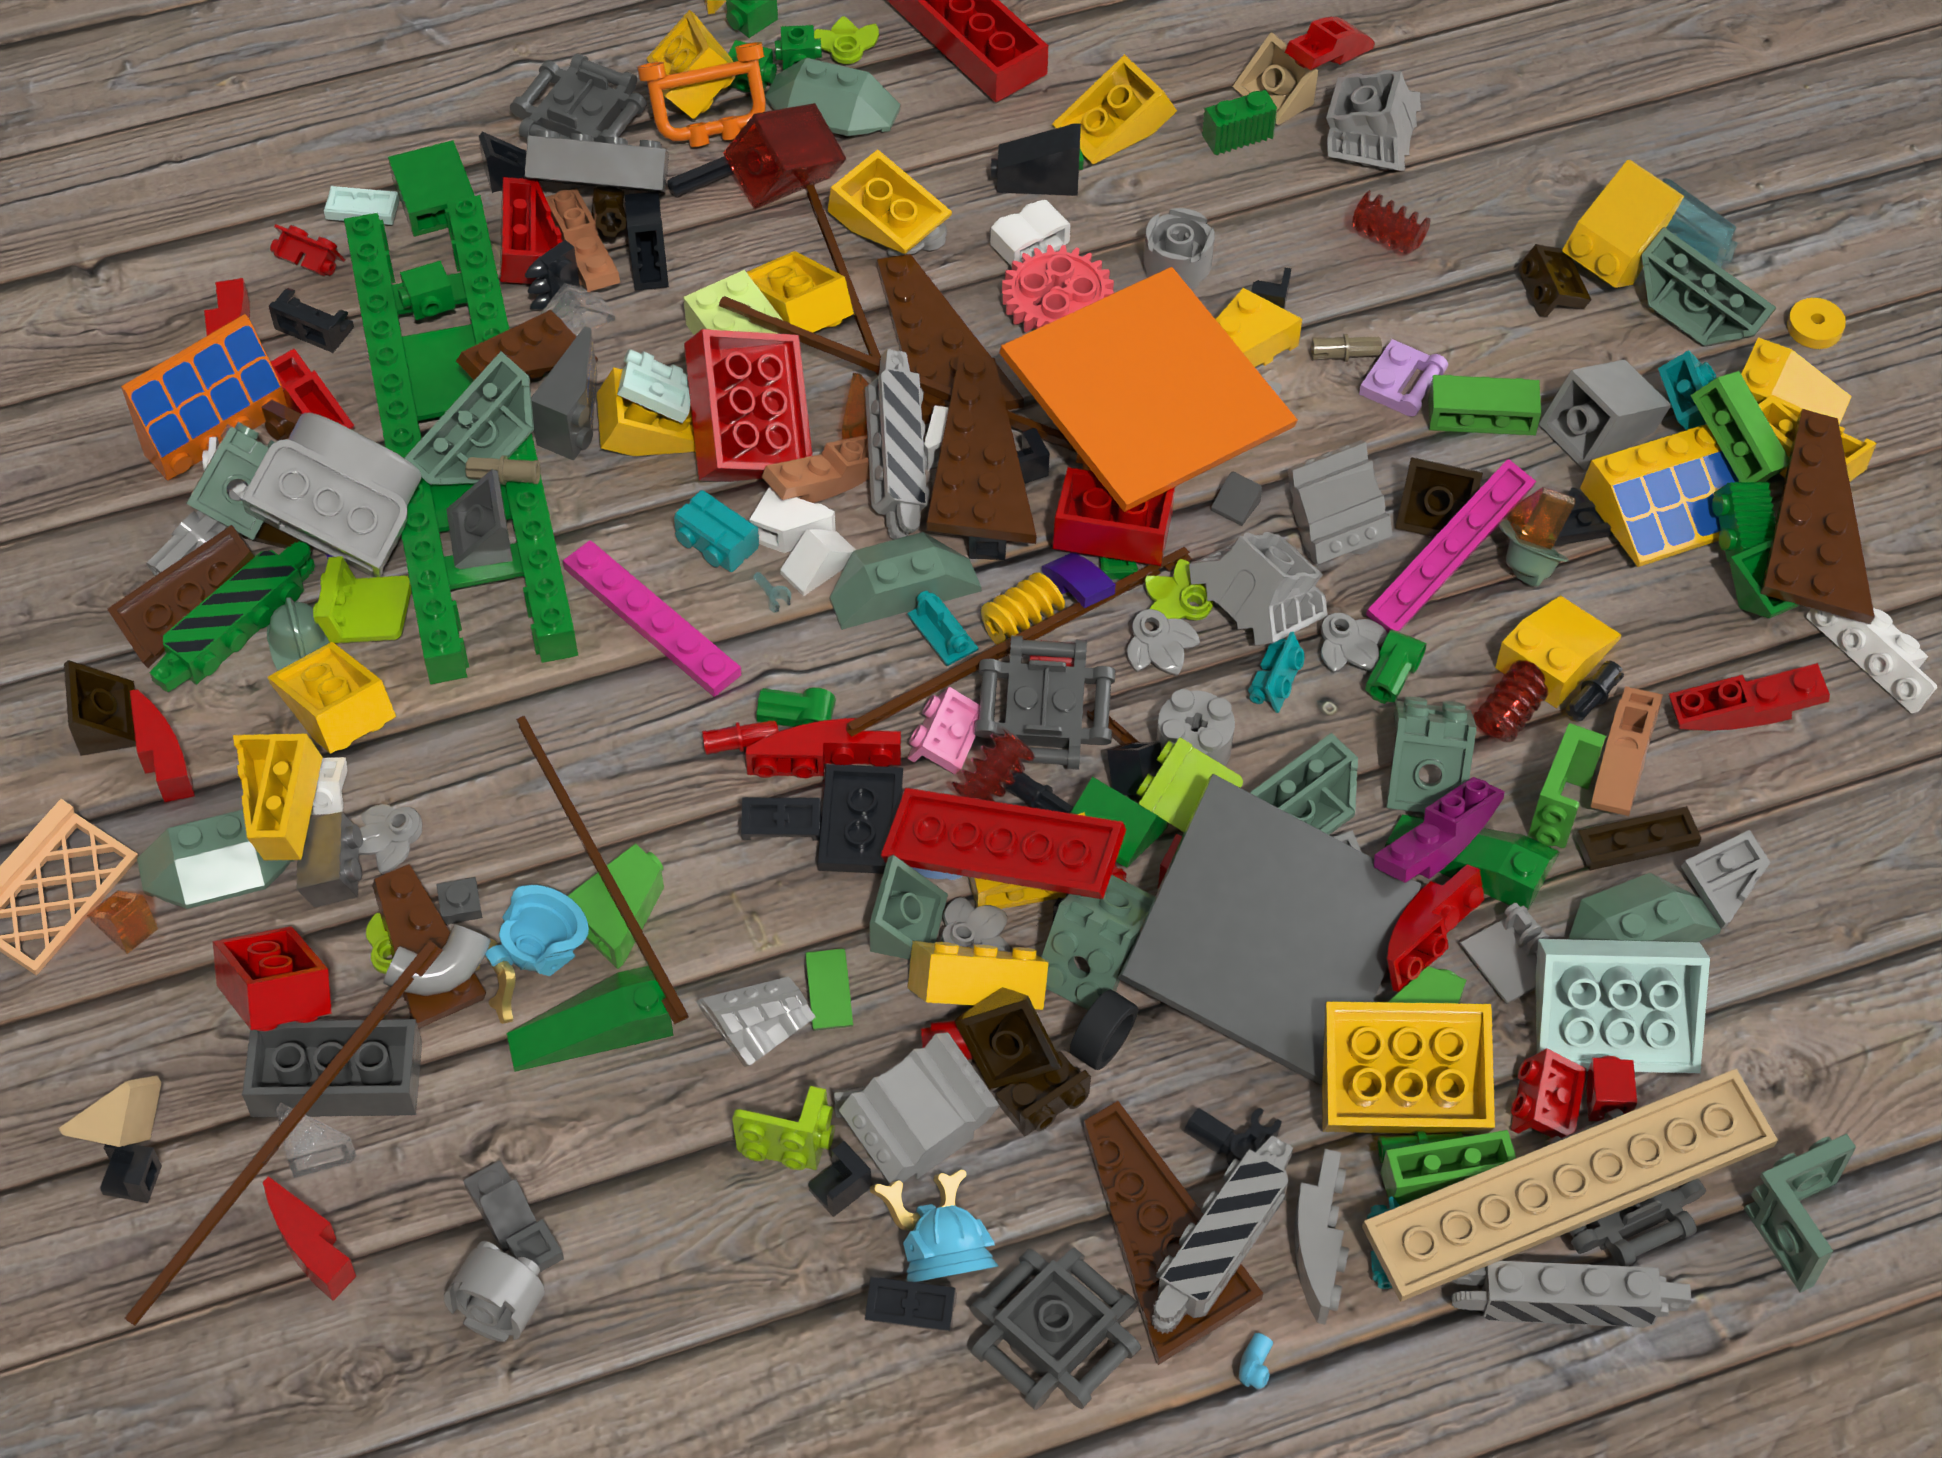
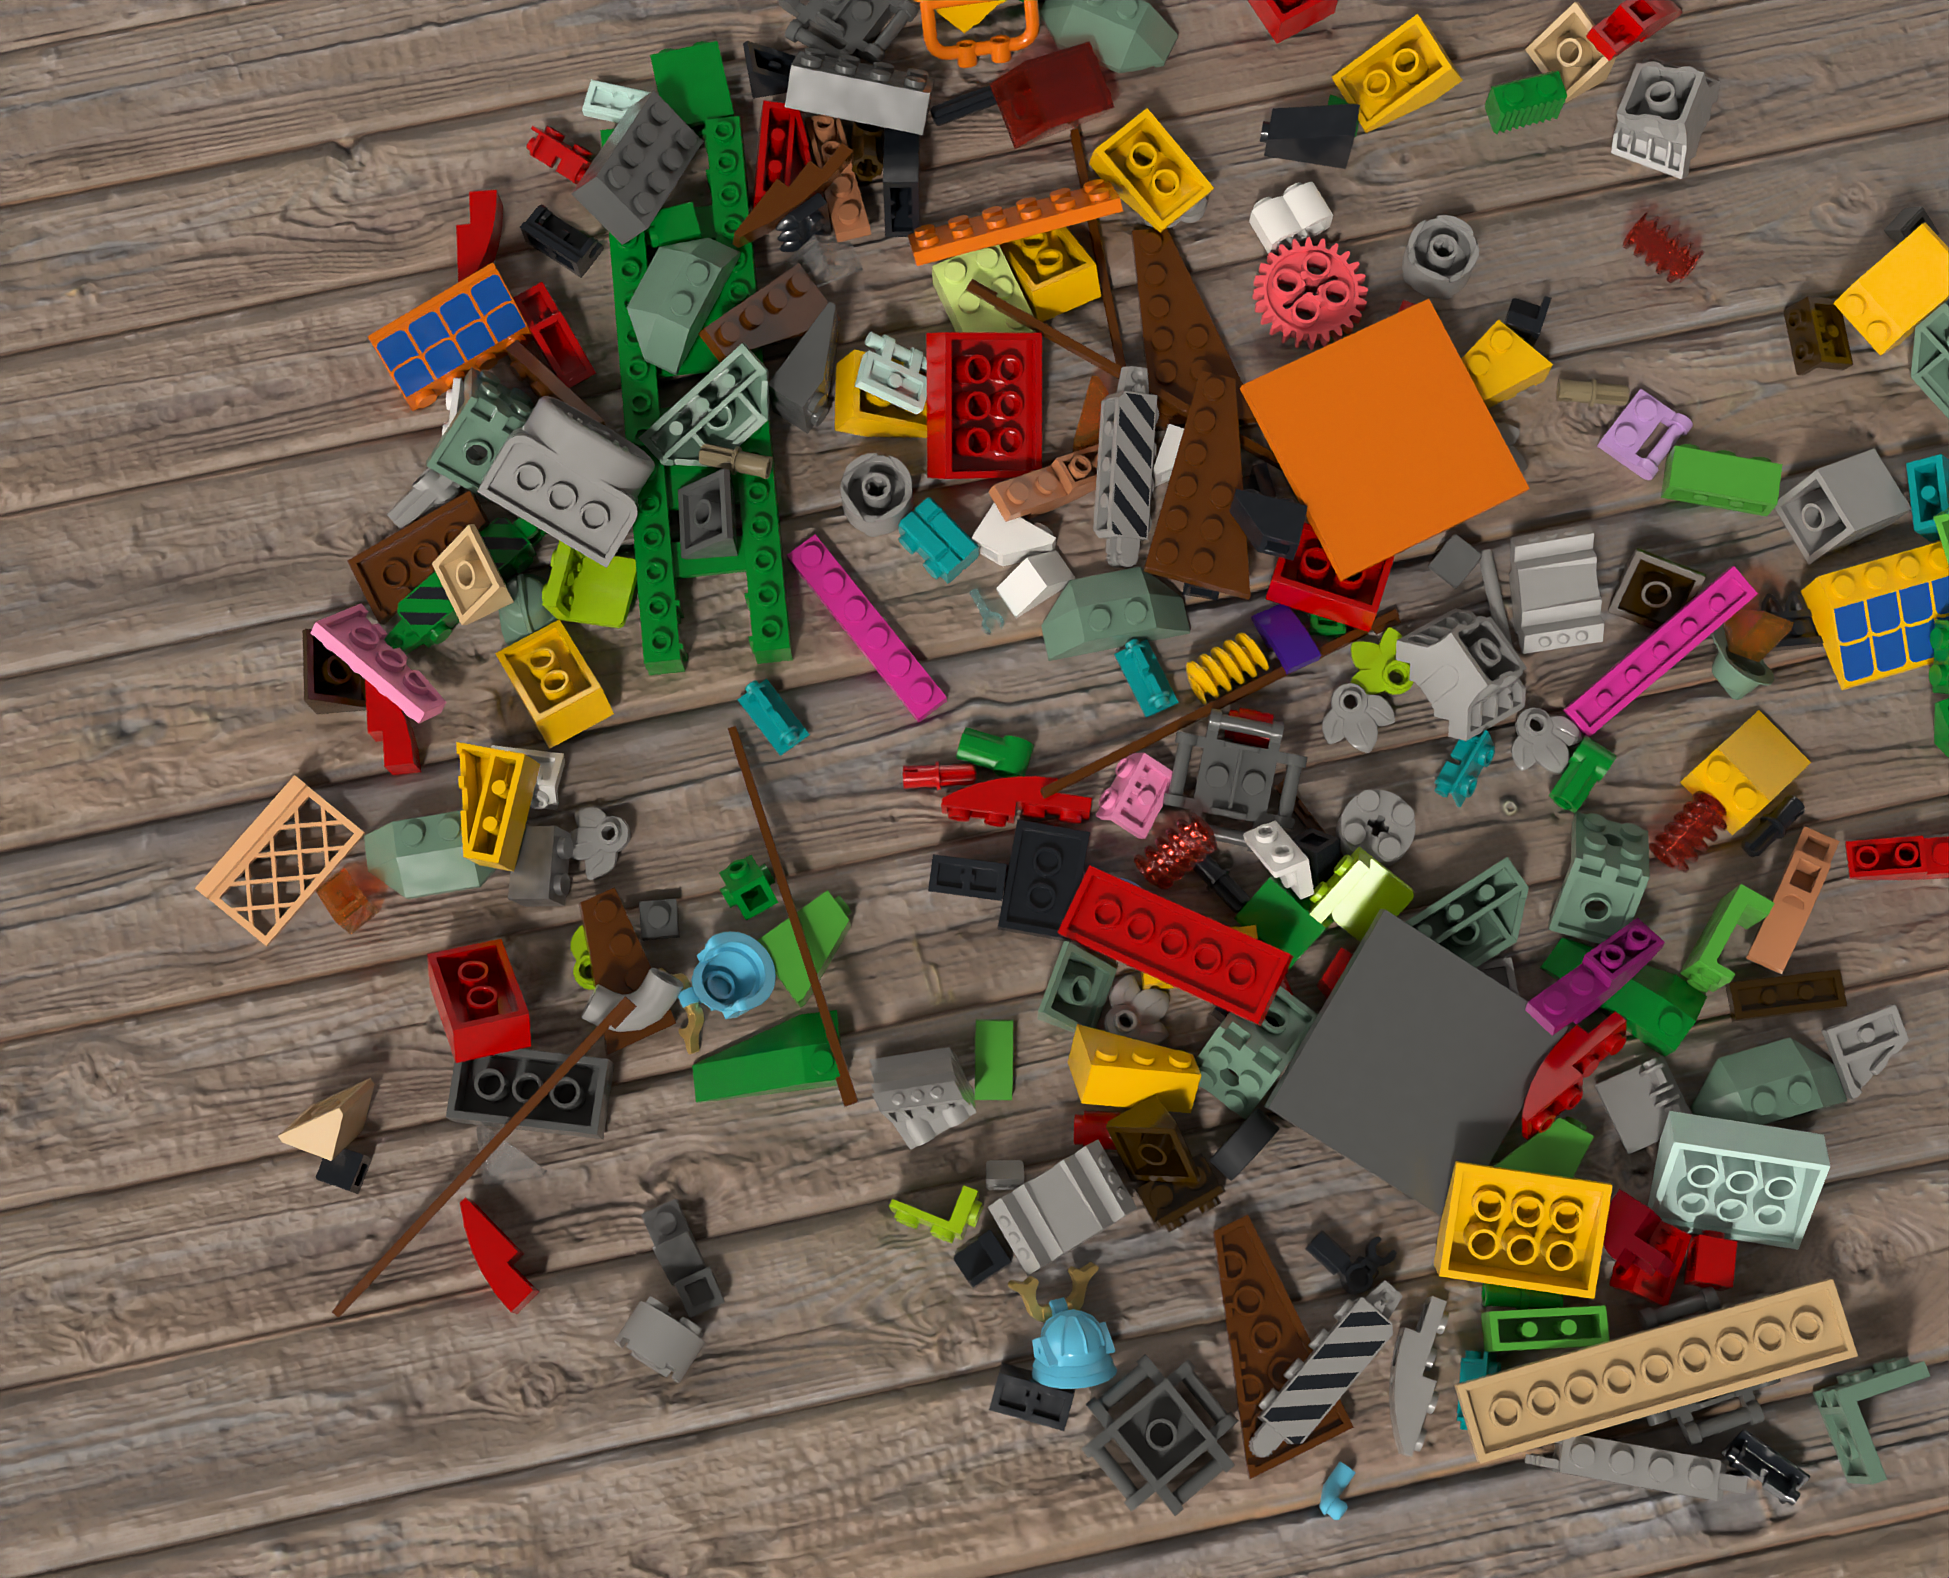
camera: 10 degrees right, 20 degrees up
(134, 681) = (367, 653): none -> bright pink wing
(240, 597) = (471, 577): none -> tan slope
(383, 235) = (637, 167): none -> dark grey brick
(429, 341) = (678, 298): none -> sand green wedge
(527, 247) = (783, 199): none -> reddish brown slope
(561, 702) = (772, 716): none -> teal hinge
(562, 854) = (748, 887): none -> green brick
(648, 494) = (880, 475): none -> light grey brick
(771, 249) = (1013, 223): none -> orange plate
(1044, 465) = (1269, 522): none -> black slope
(1104, 758) = (1281, 857): none -> white bracket
(1276, 516) = (1494, 593): none -> light grey bar
(1522, 1061) = (1627, 1232): none -> dark red brick
(1709, 1279) = (1766, 1465): none -> black hinge

